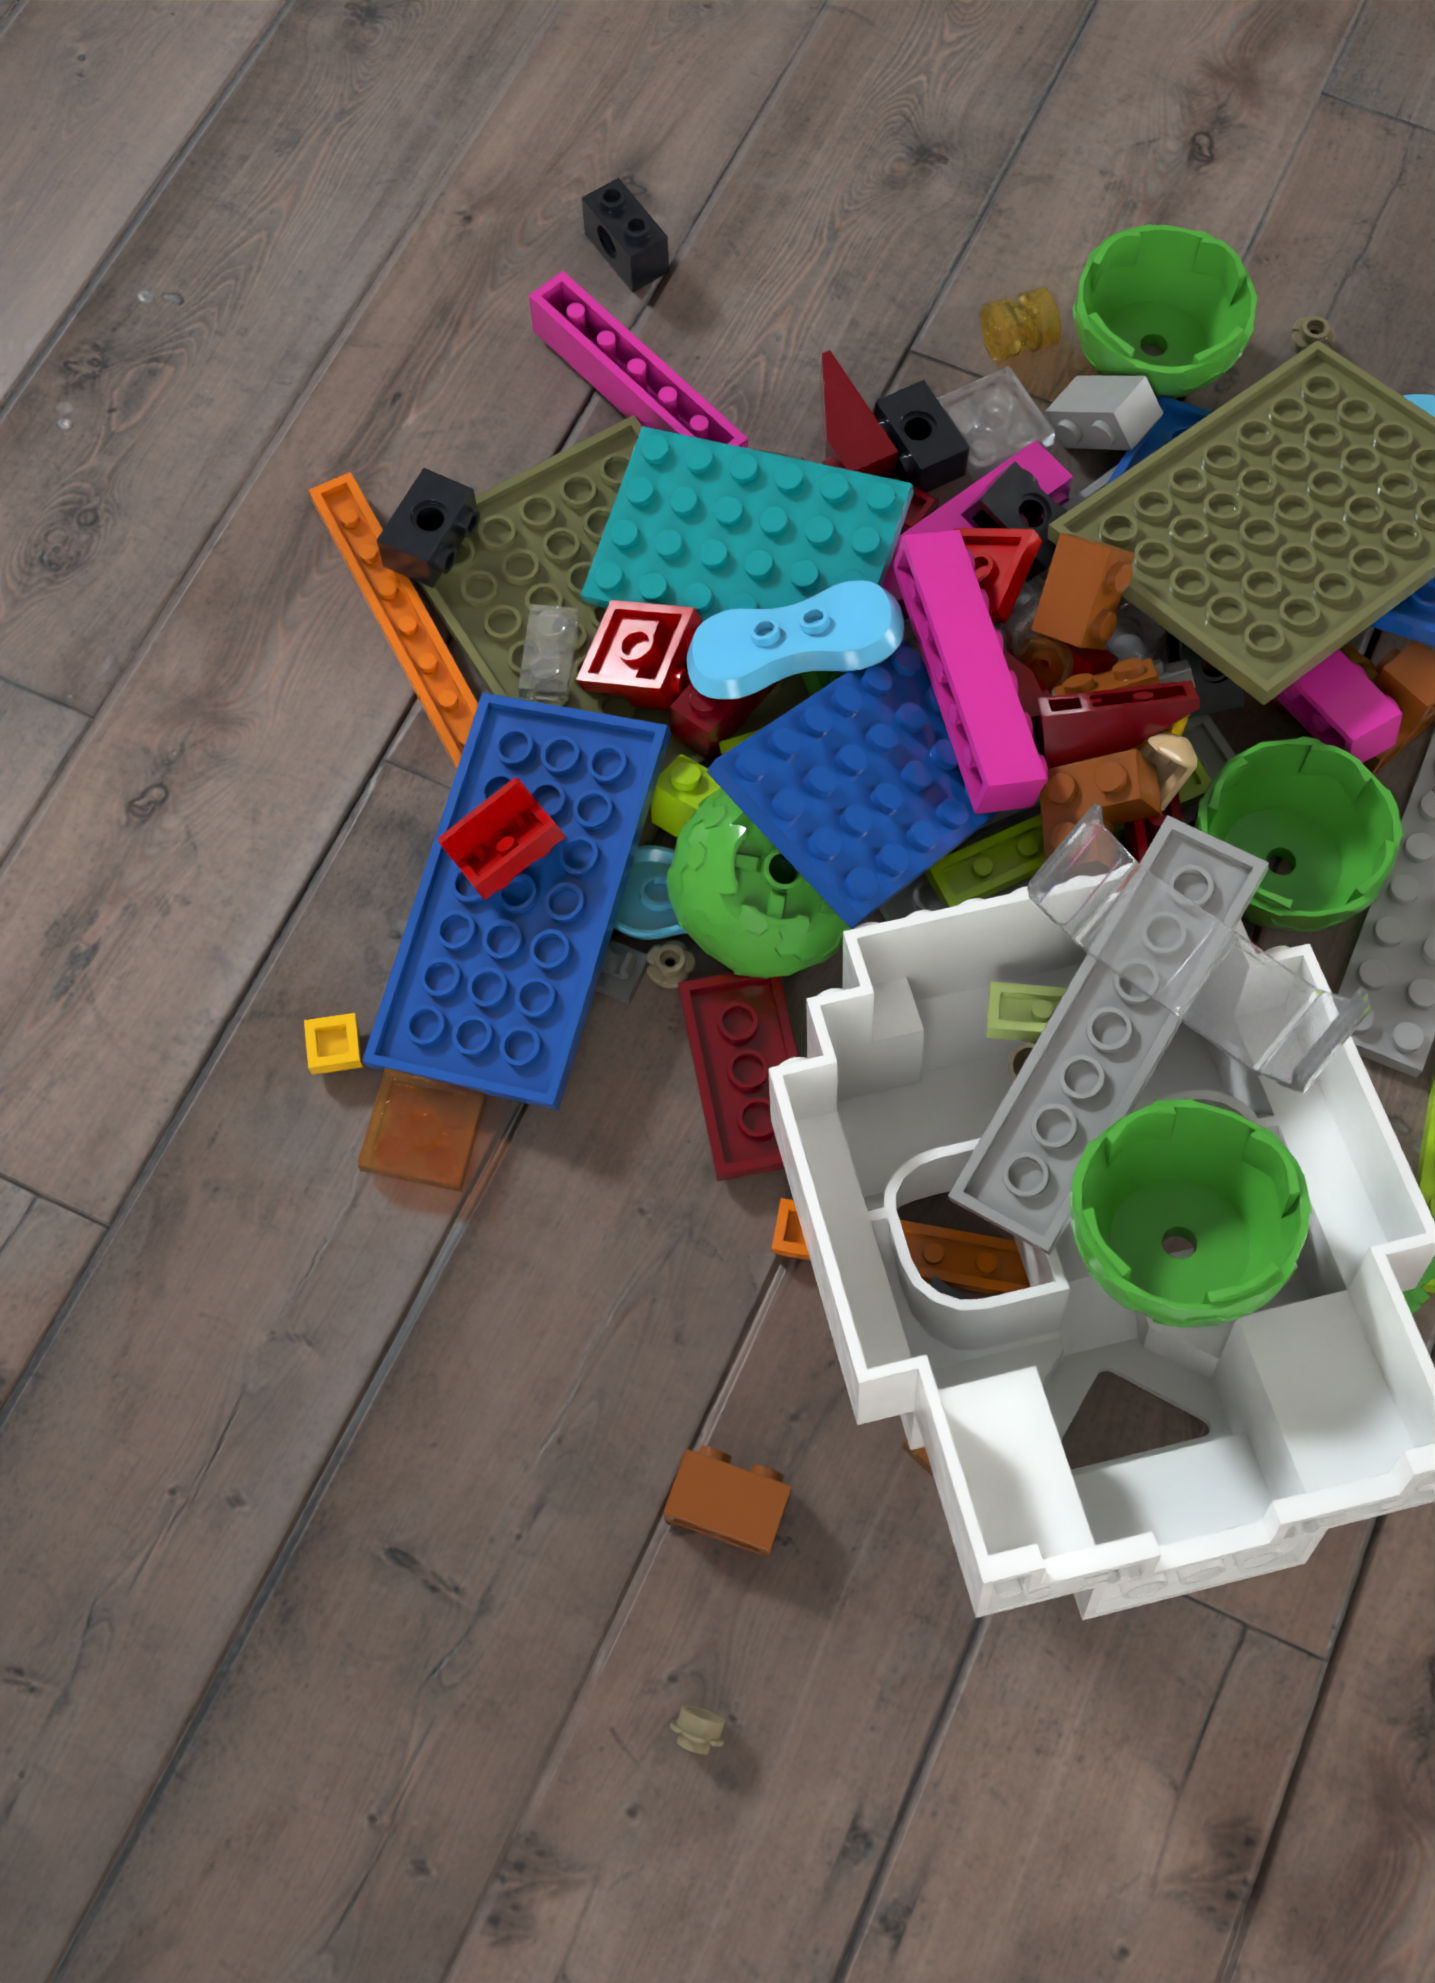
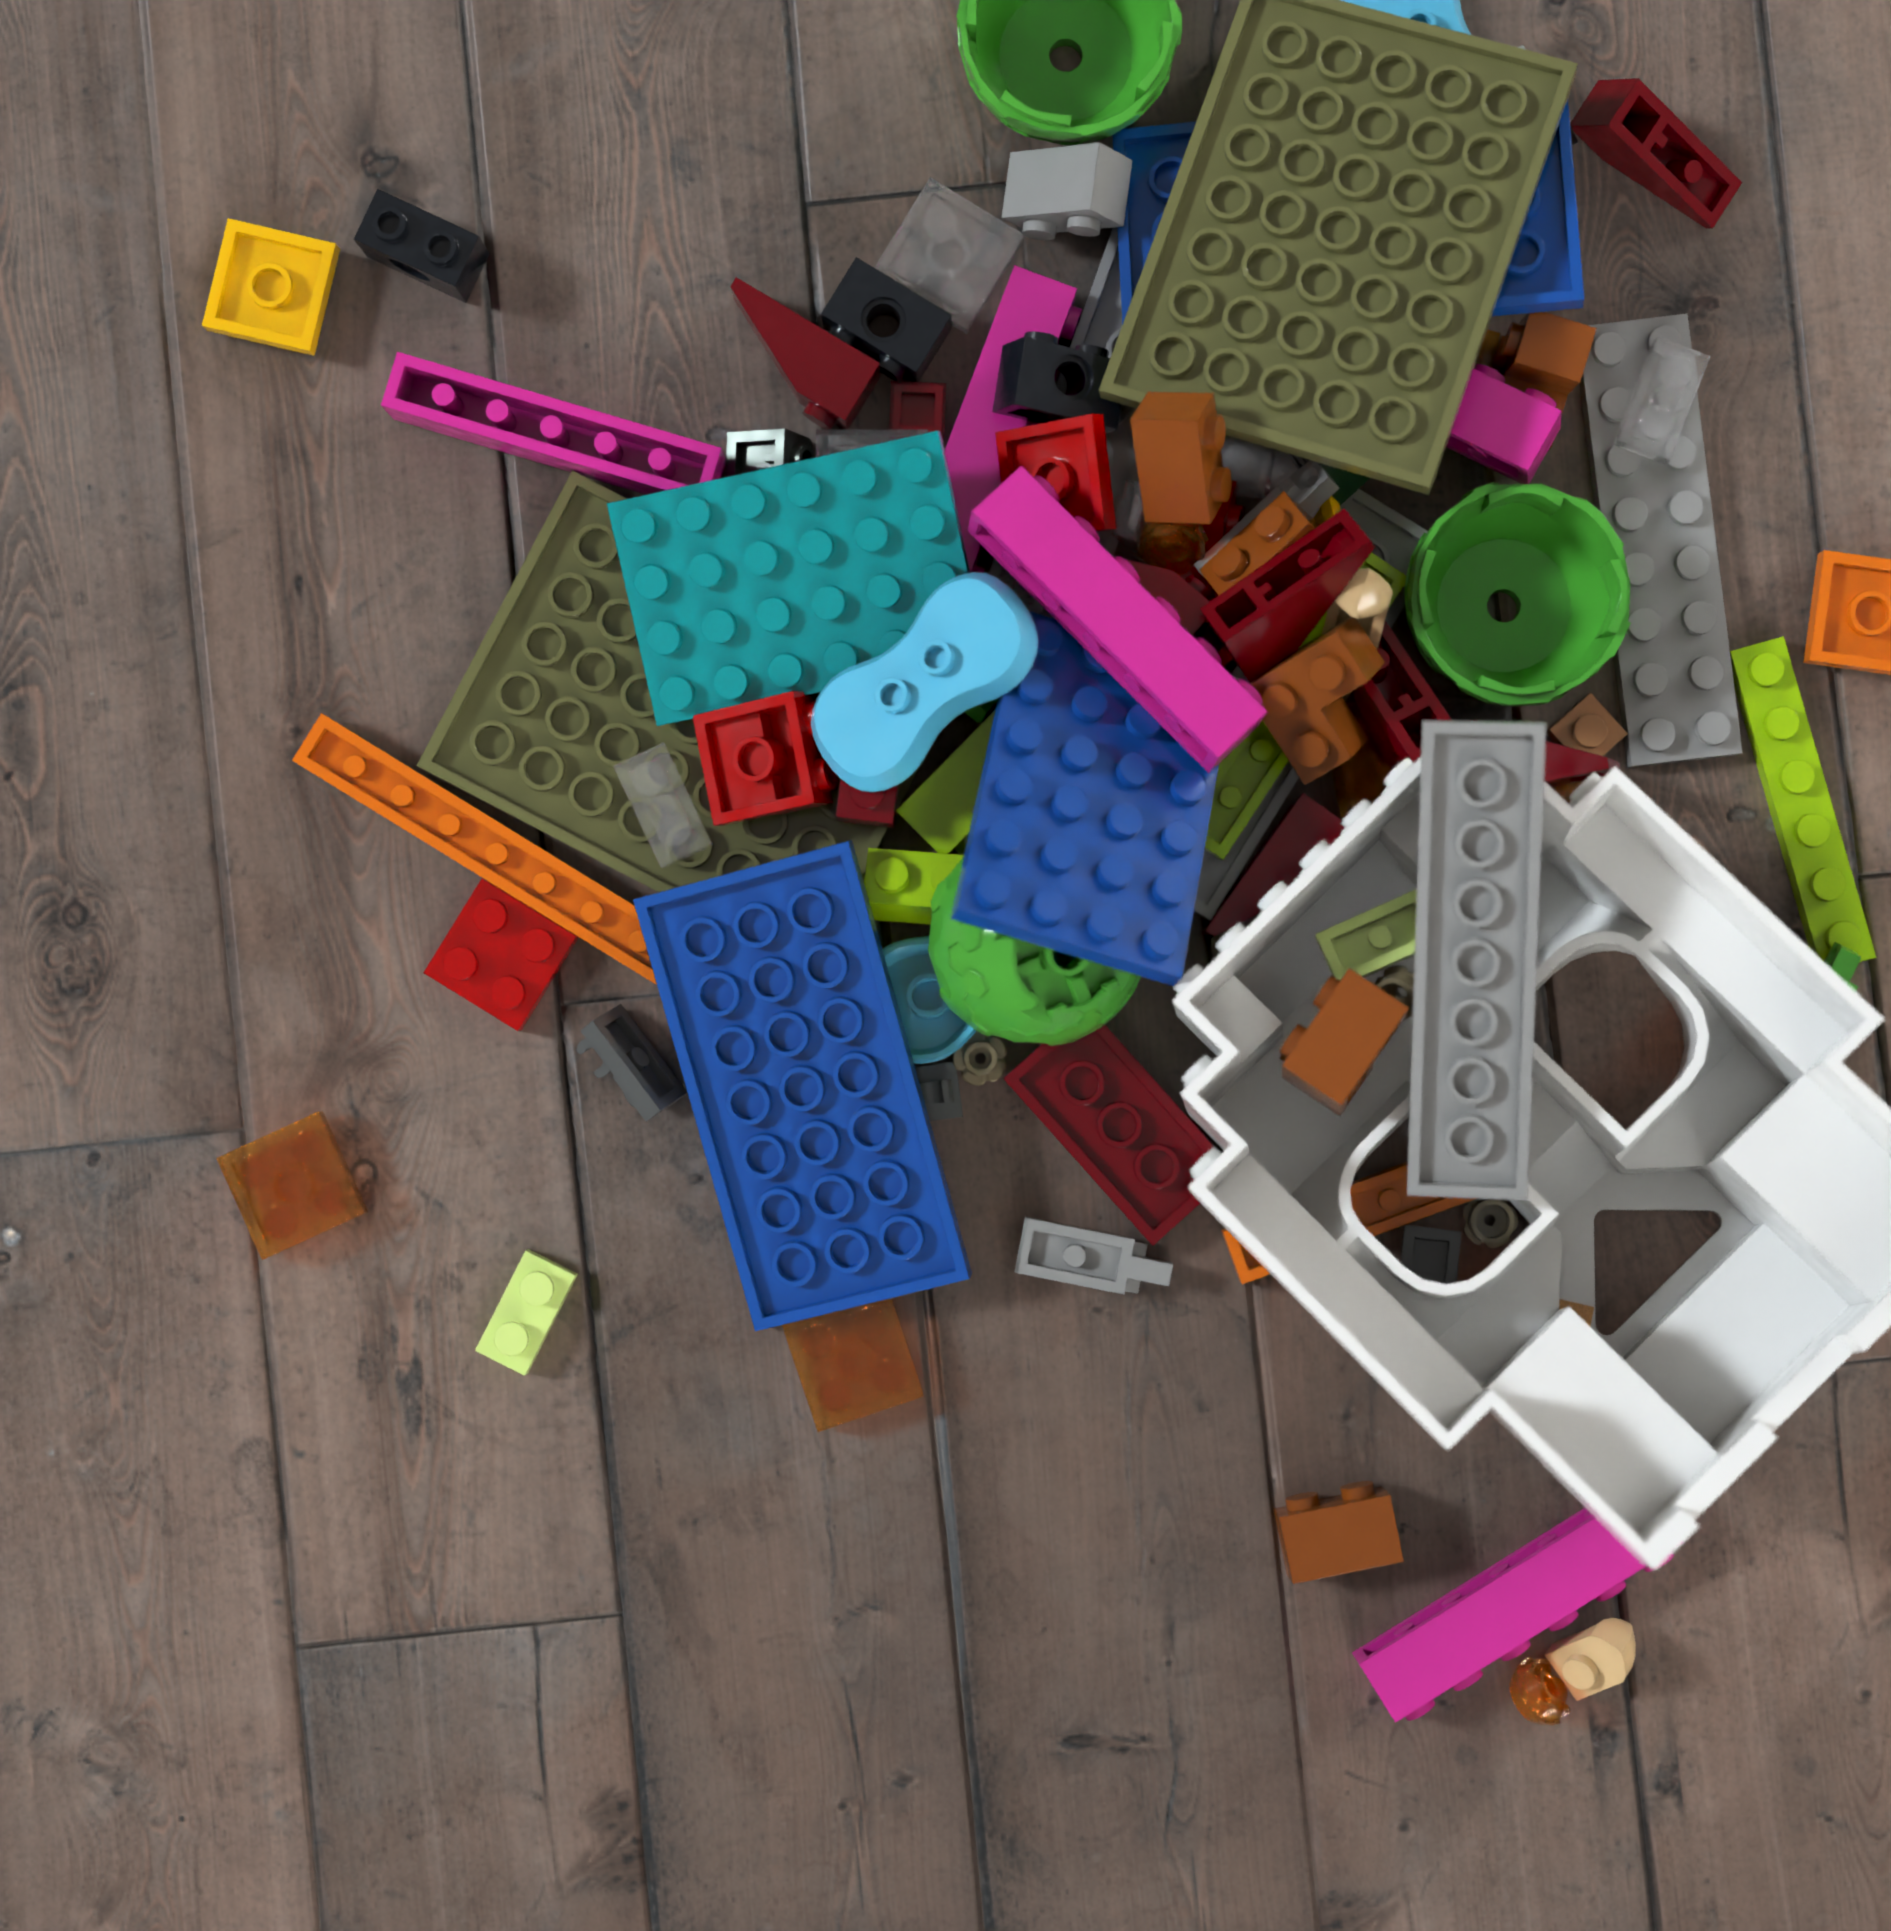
camera: 25 degrees left, 20 degrees up
(98, 766) = (292, 1185): none -> clear orange plate
(201, 954) = (526, 1312): none -> yellowish green plate
(333, 1043) = (715, 1328): yellow plate -> none
(363, 699) = (501, 955): none -> red plate
(404, 816) = (633, 1061): none -> dark grey plate
(429, 504) = (436, 714): black brick -> none
(501, 838) = (762, 1055): red bracket -> none
(507, 212) = (271, 287): none -> yellow plate
(659, 1159) = (1087, 1258): none -> light grey hinge
(698, 1729) = (1424, 1735): dark tan plate -> none
(821, 1752) = (1538, 1693): none -> clear orange plate
(851, 1655) = (1496, 1614): none -> dark pink brick
(890, 1751) = (1594, 1657): none -> tan plate
(958, 1053) = (1342, 1041): none -> dark orange brick
(1027, 323) = (918, 112): clear yellow wheel -> none
(1191, 959) = (1536, 869): clear windscreen -> none
(1198, 1178) = (1692, 1080): bright green piece -> none

